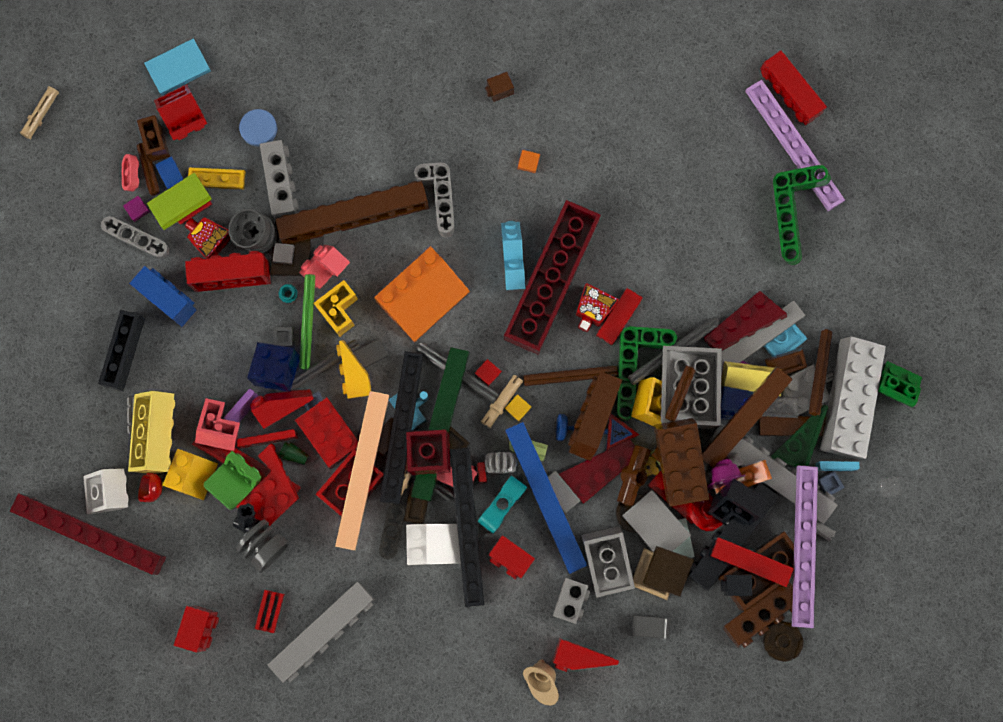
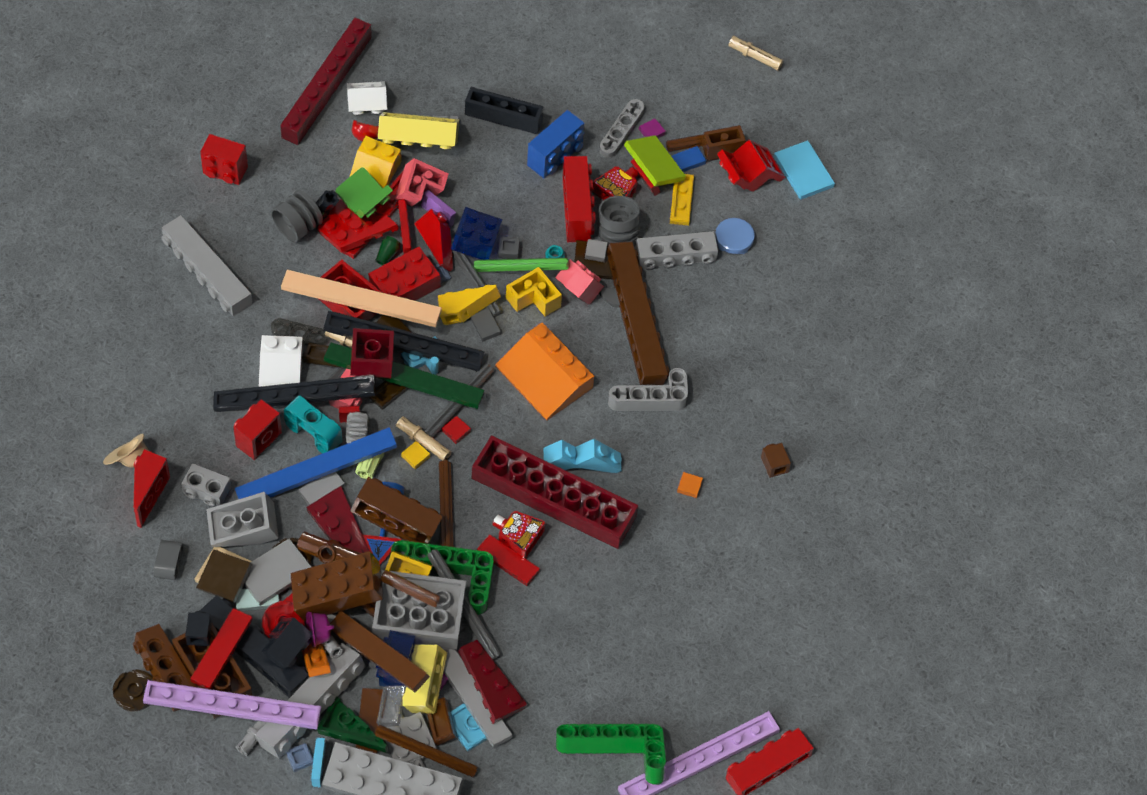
camera: 90 degrees right, 20 degrees down
(130, 172) = (696, 125): coral plate -> none
(262, 608) = (233, 222): red tile -> none

